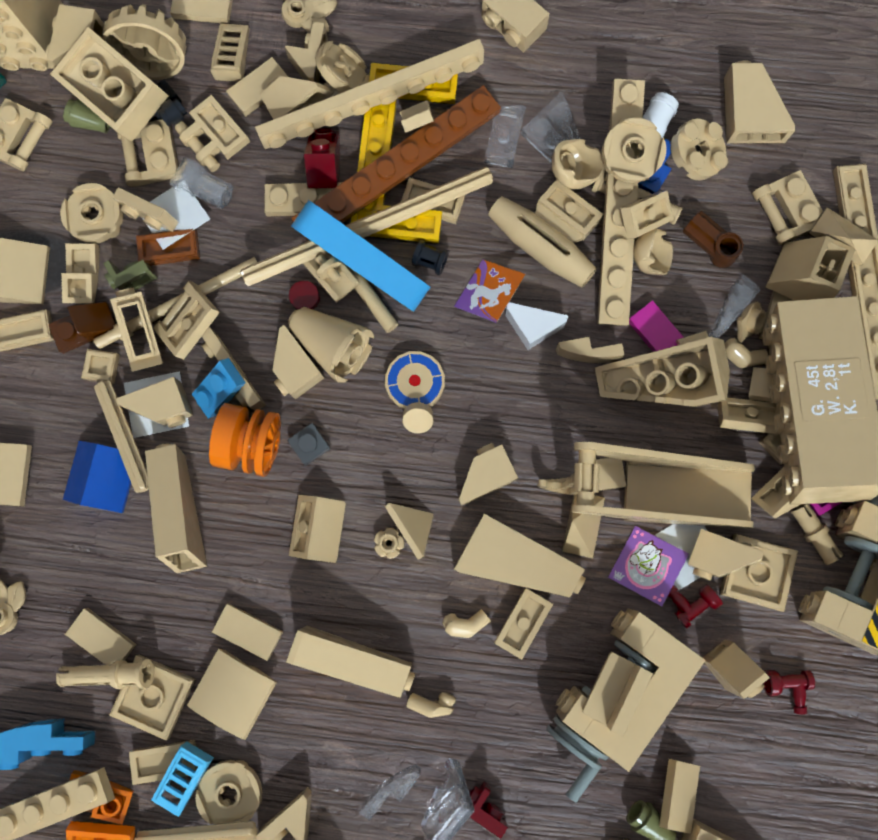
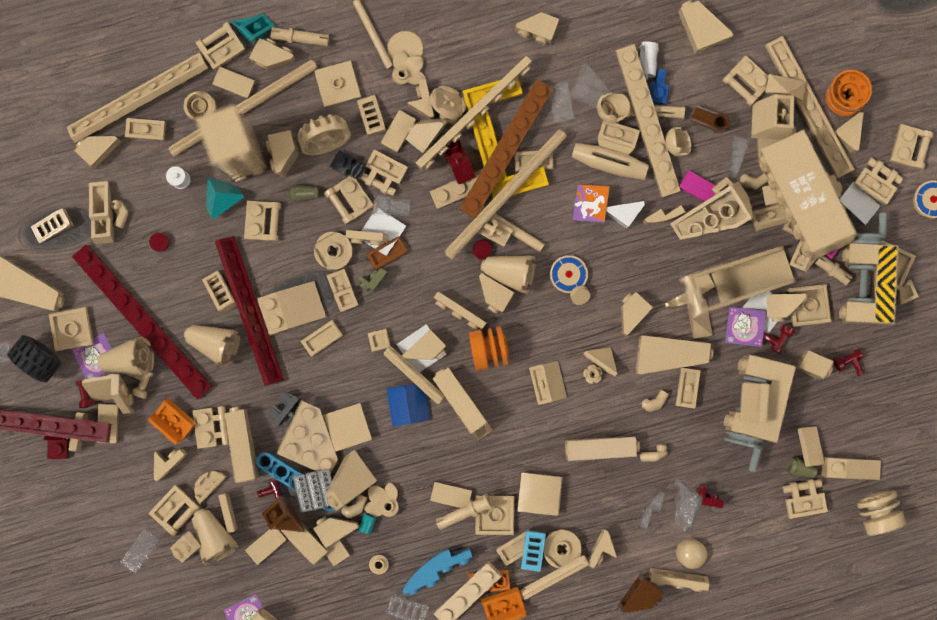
camera: 25 degrees left, 5 degrees up
(81, 325) = (358, 320): reddish brown slope -> none
(109, 84) = (317, 171): tan slope -> none
(128, 298) = (382, 297): tan window -> none
(163, 309) = (384, 312): tan bar -> none
(186, 321) = (426, 293): tan plate -> none
(218, 387) = (458, 325): dark azure plate -> none
(247, 631) = (533, 457): tan tile -> none
(308, 444) = (522, 336): dark grey plate -> none
(360, 255) = (510, 215): dark azure beam -> none
(416, 116) = (506, 115): tan slope -> none
(430, 257) = (547, 197): black bush -> none
(646, 214) = (666, 123): tan plate -> none
(648, 141) = (651, 81): tan plate -> none
(709, 139) = (689, 63): tan plate -> none
(751, 321) = (750, 160): tan animal -> none

